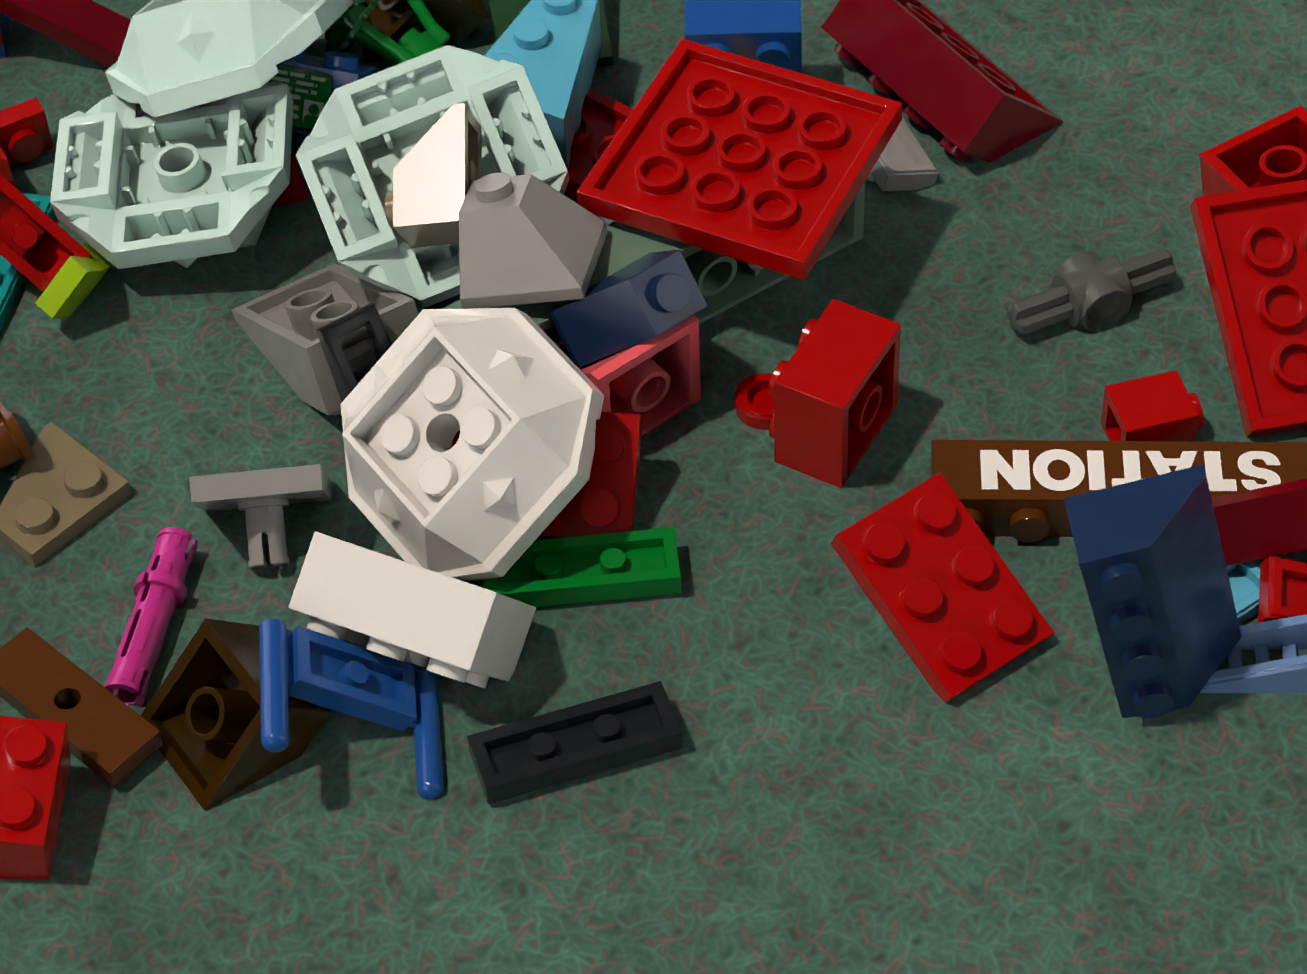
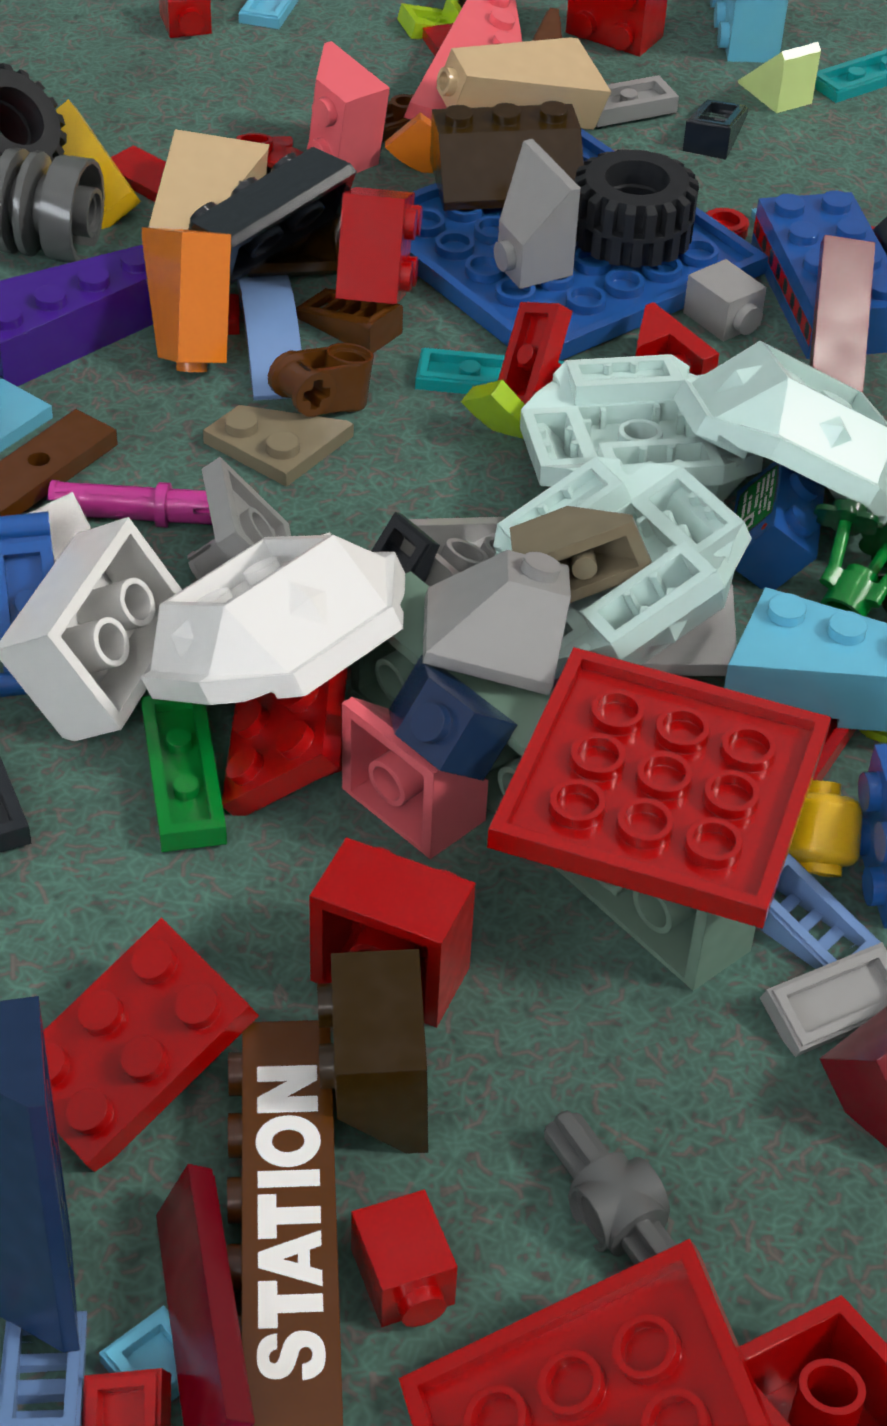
camera: 80 degrees right, 5 degrees down
(970, 389) = (377, 1045): none -> dark brown slope

